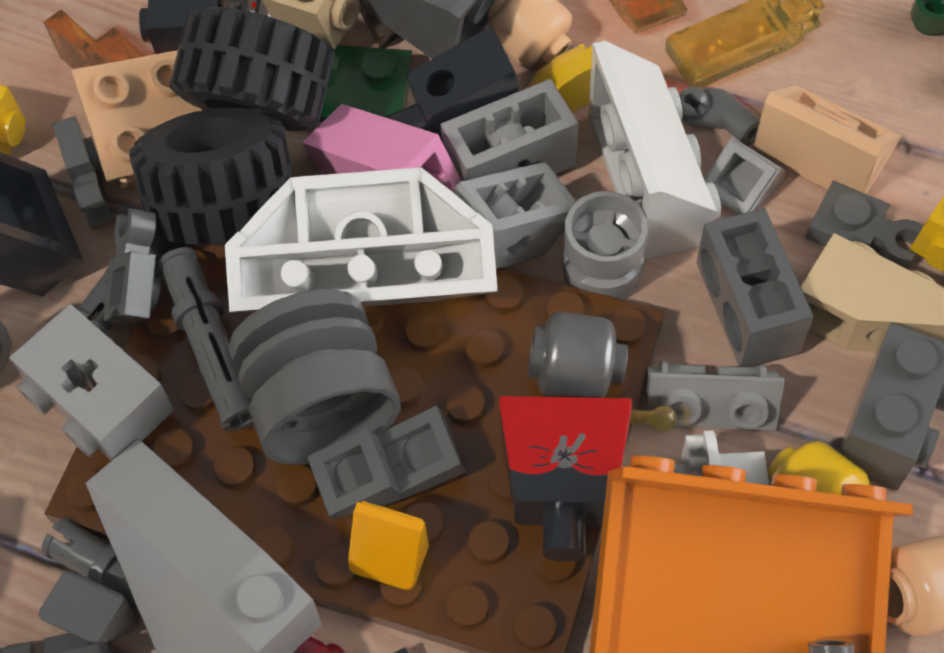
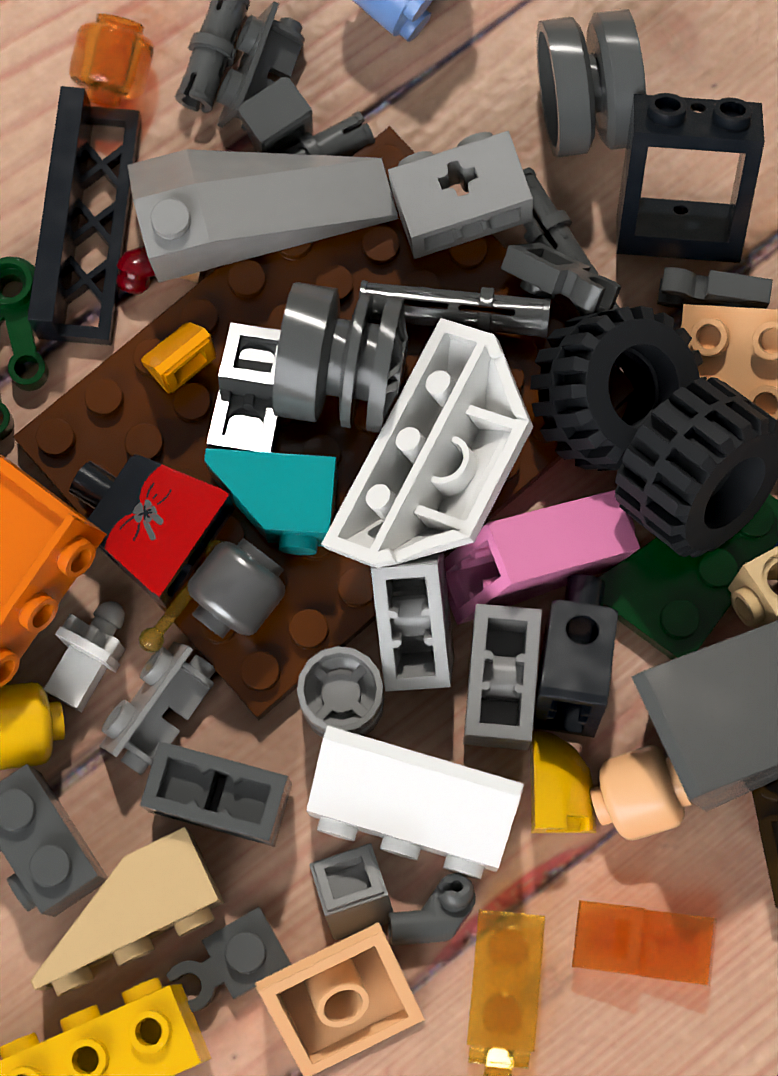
camera: 120 degrees right, 15 degrees up
(467, 368) = (280, 494): none -> teal slope

